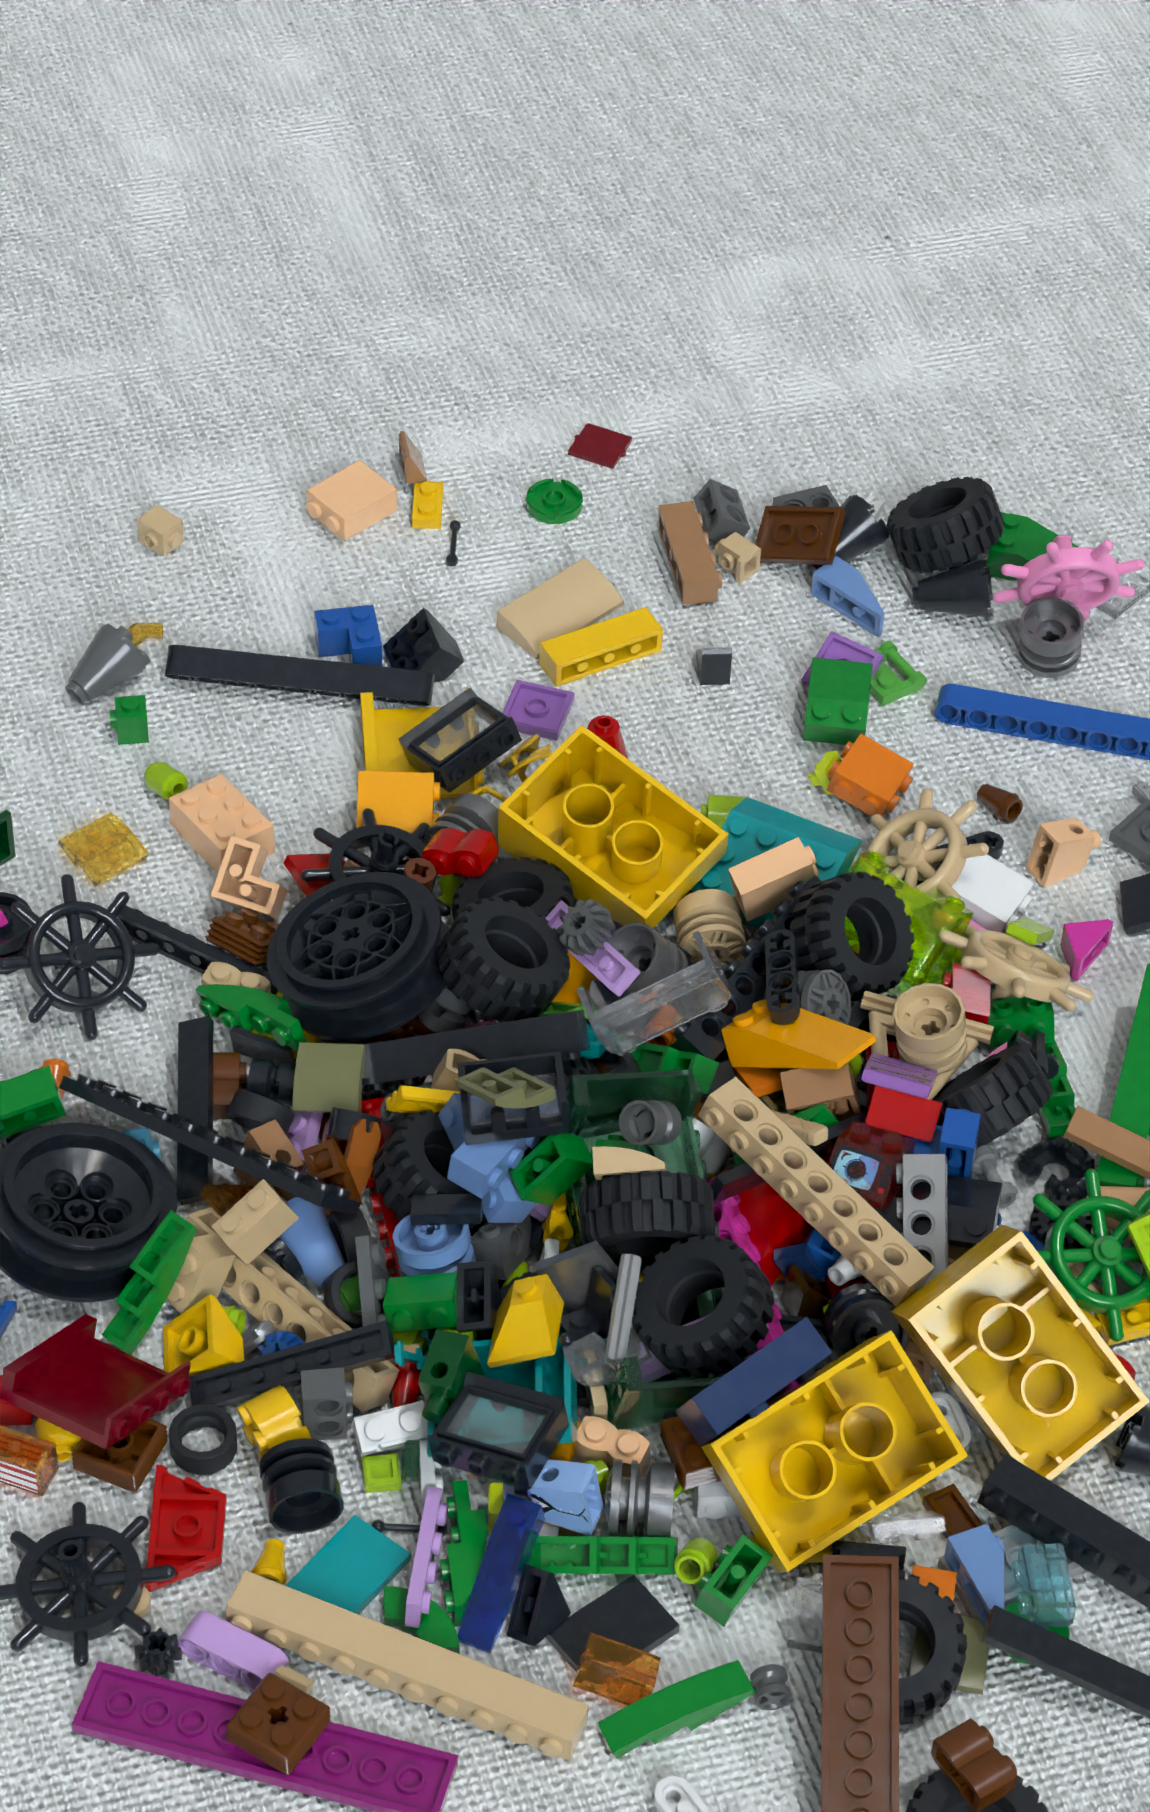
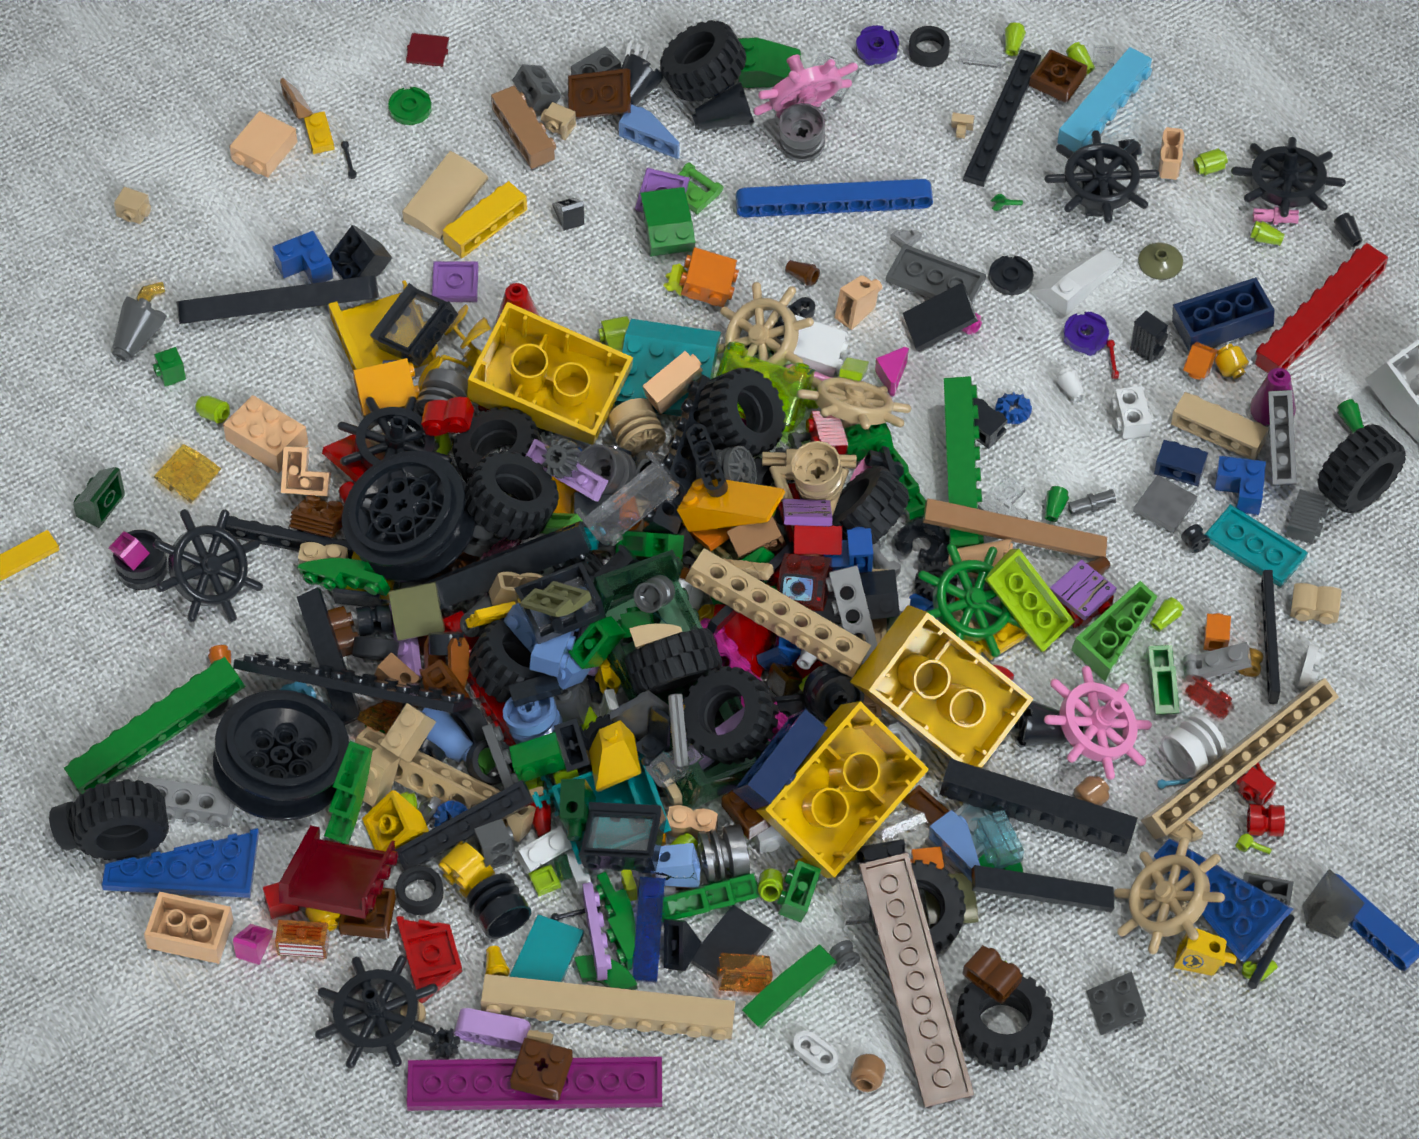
camera: 15 degrees left, 10 degrees up
(421, 871) = (424, 435): copper wheel -> none

